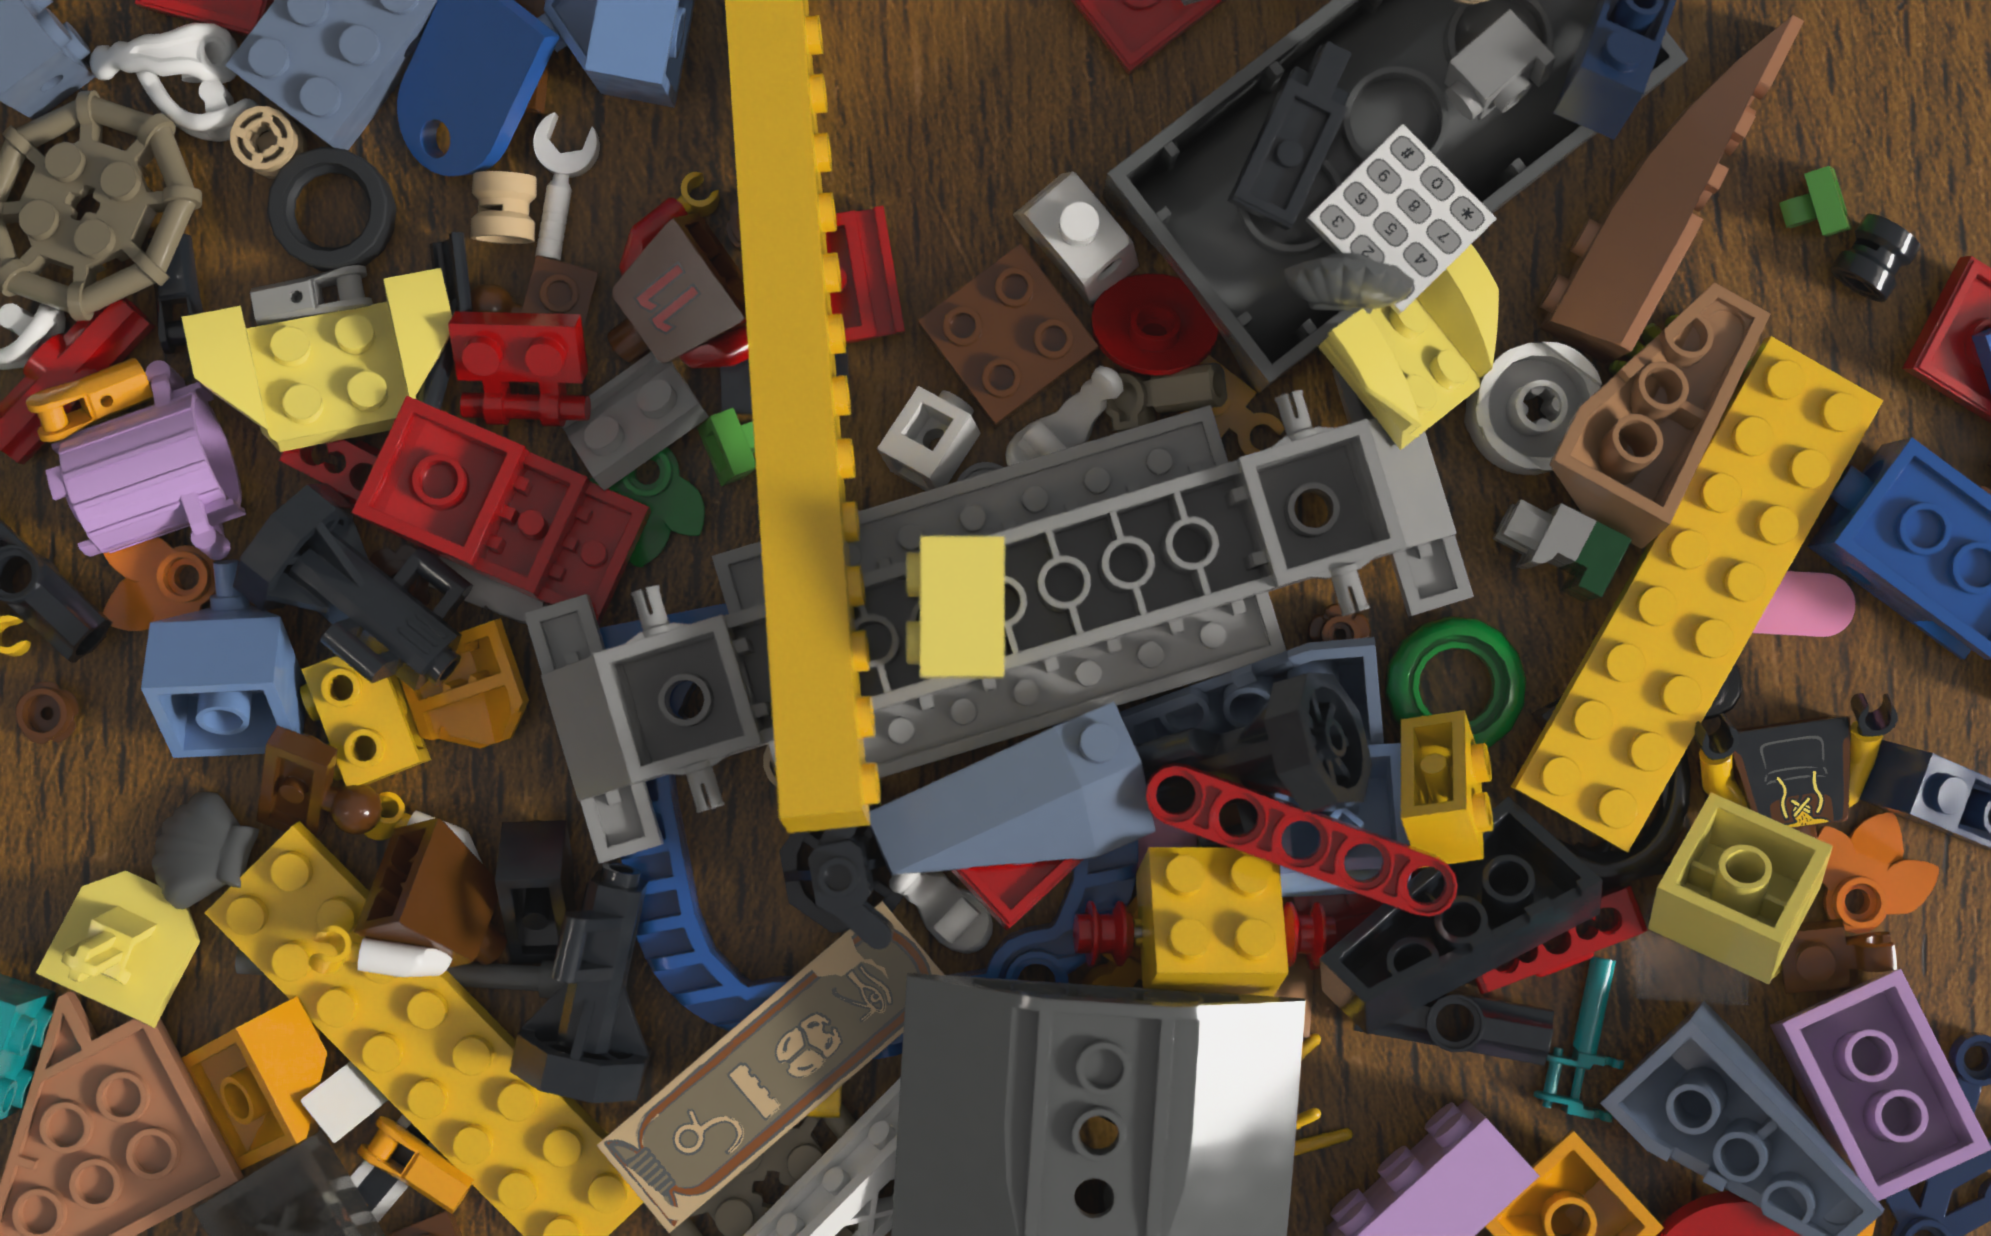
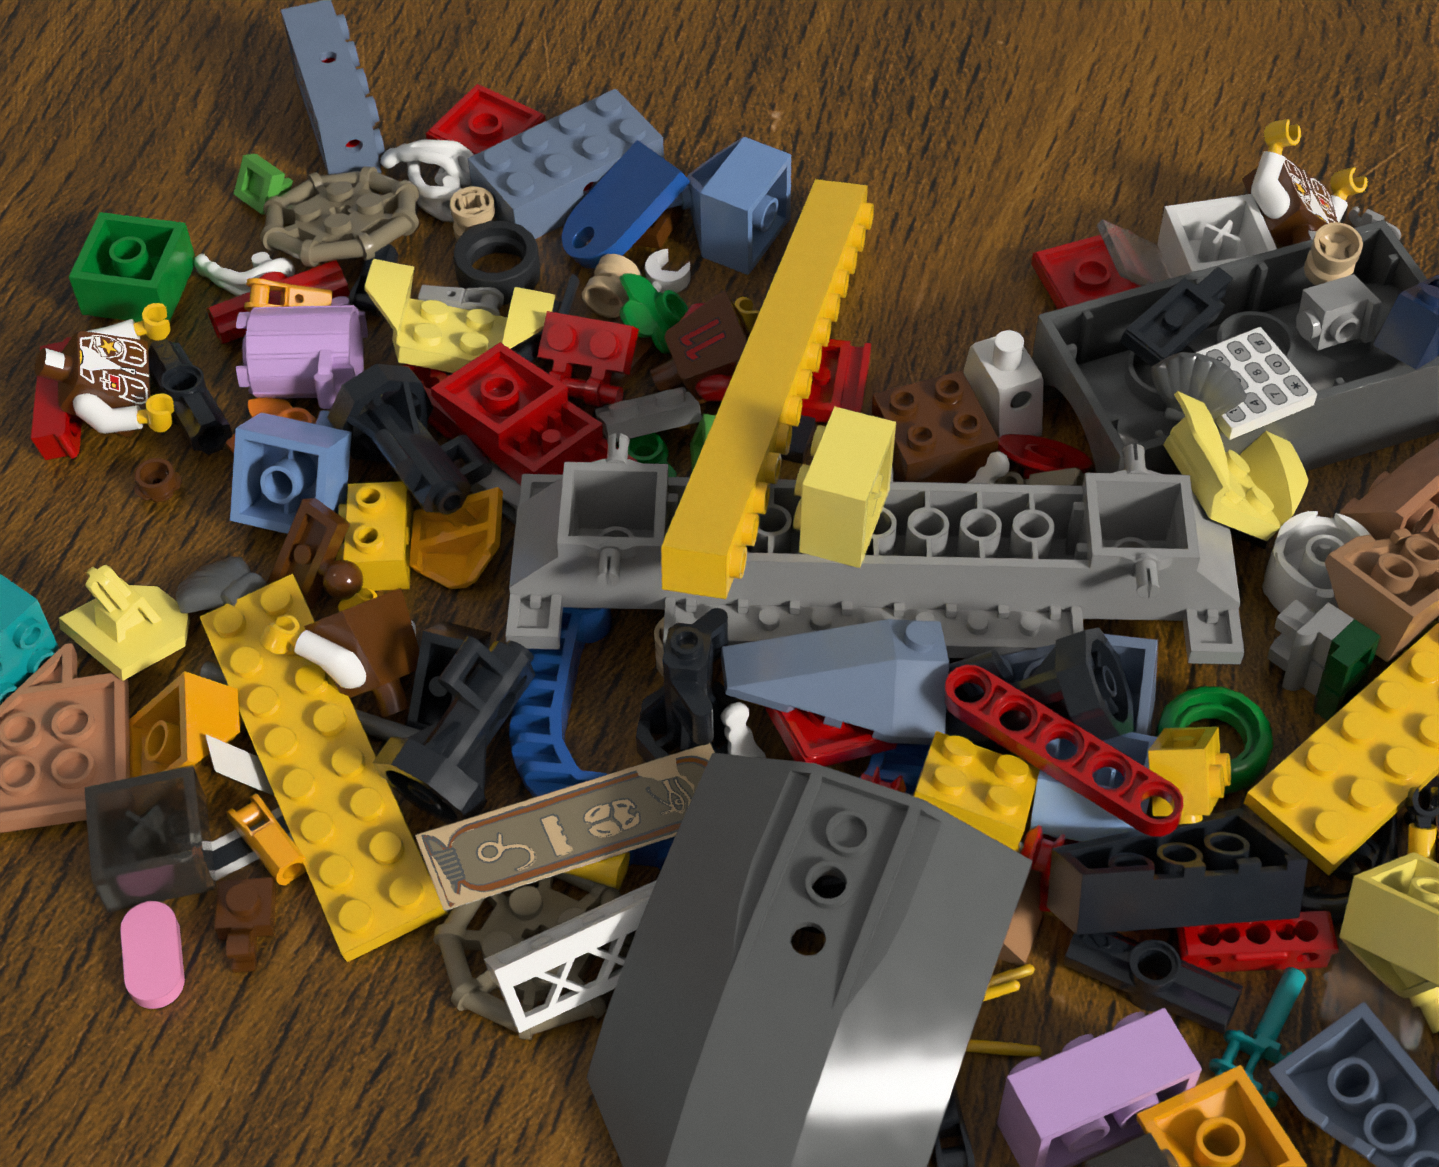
camera: 20 degrees right, 35 degrees down
(578, 247) = (650, 310): none -> green plate

